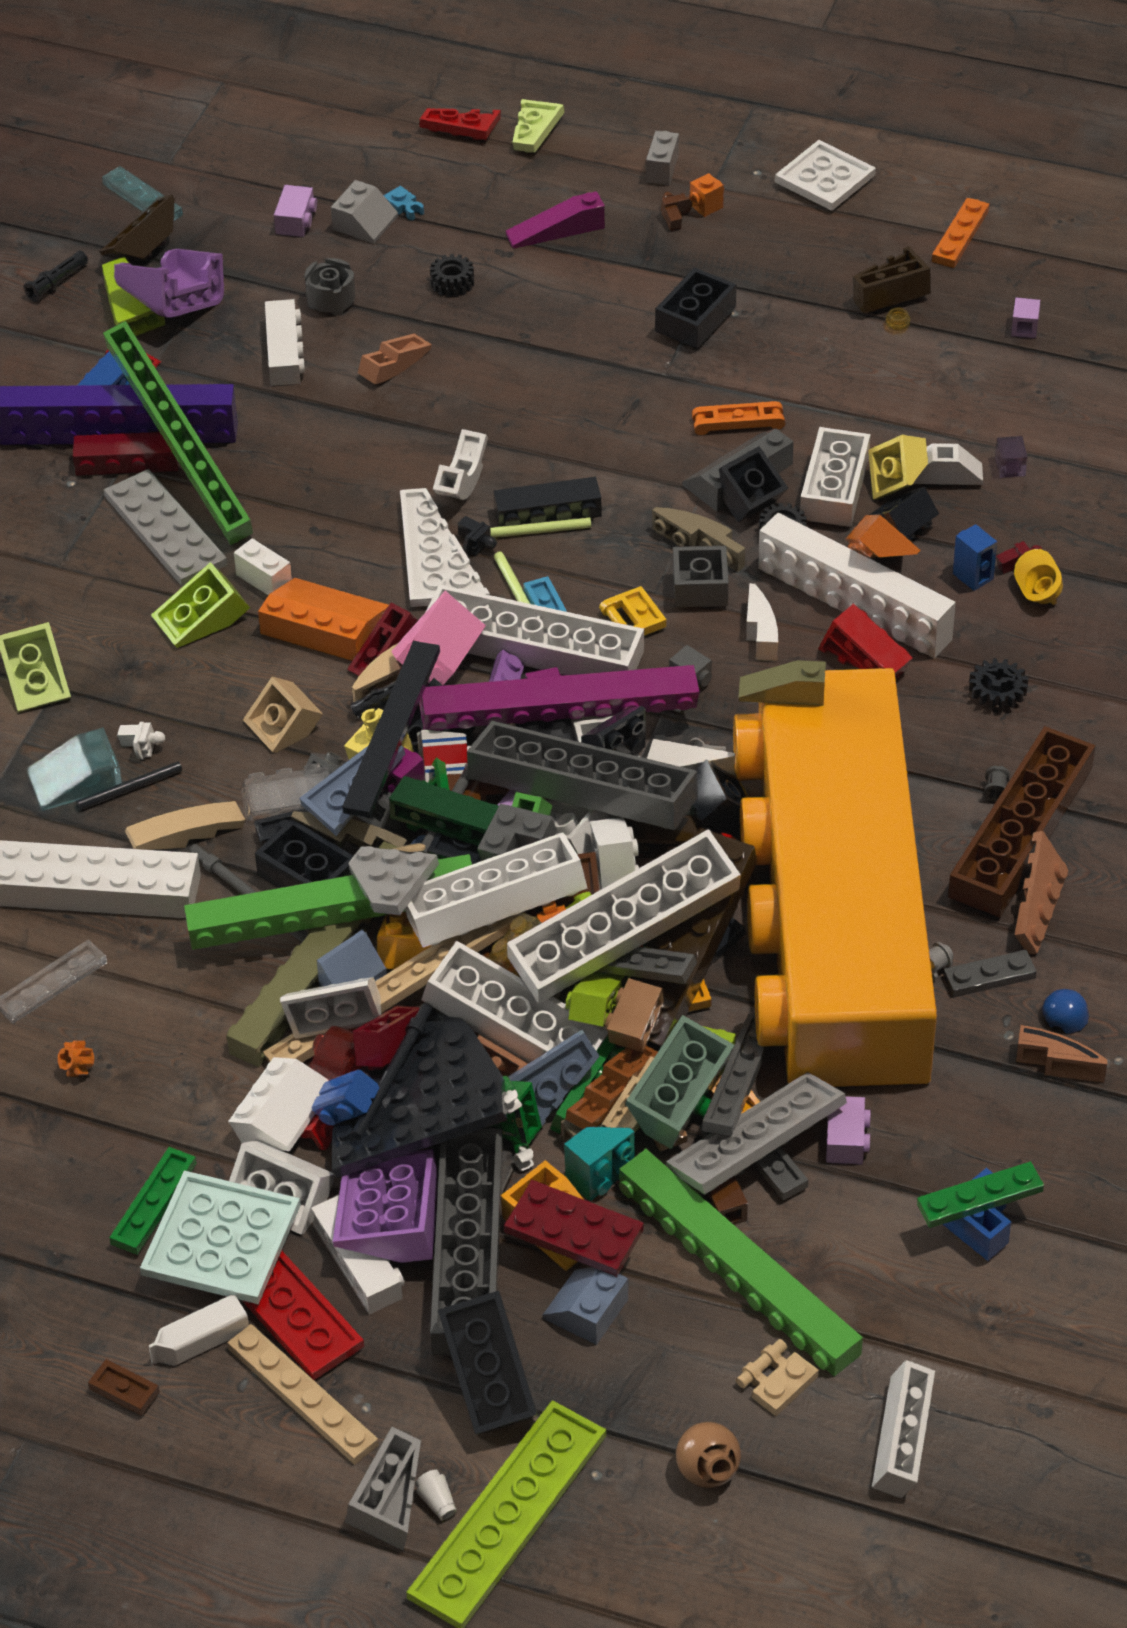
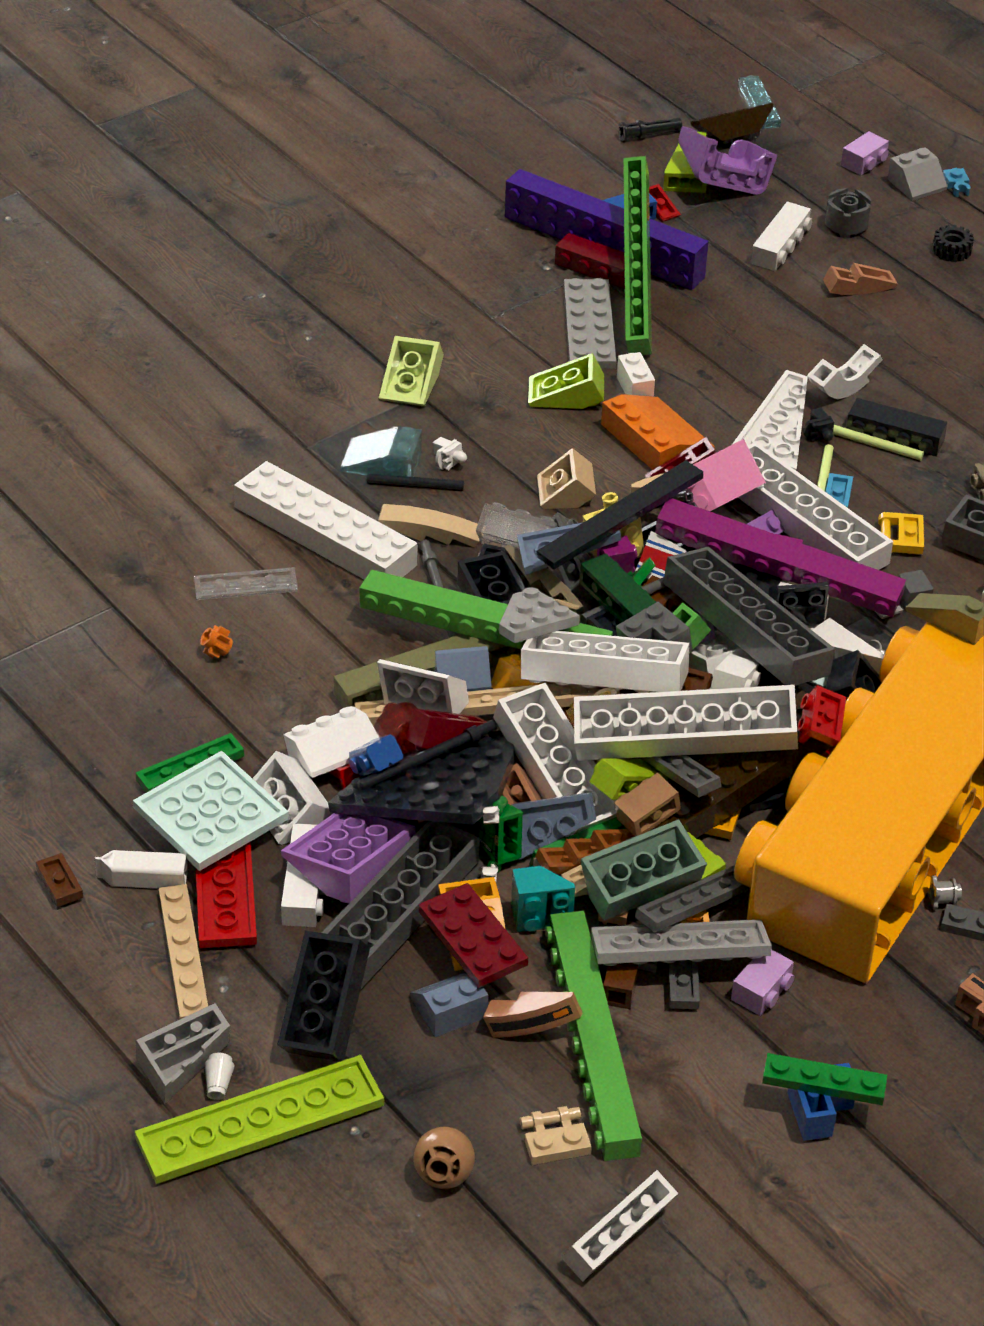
camera: 30 degrees right, 5 degrees down
(677, 1274) = (531, 1013): none -> nougat slope
(744, 845) = (822, 716): none -> red bracket

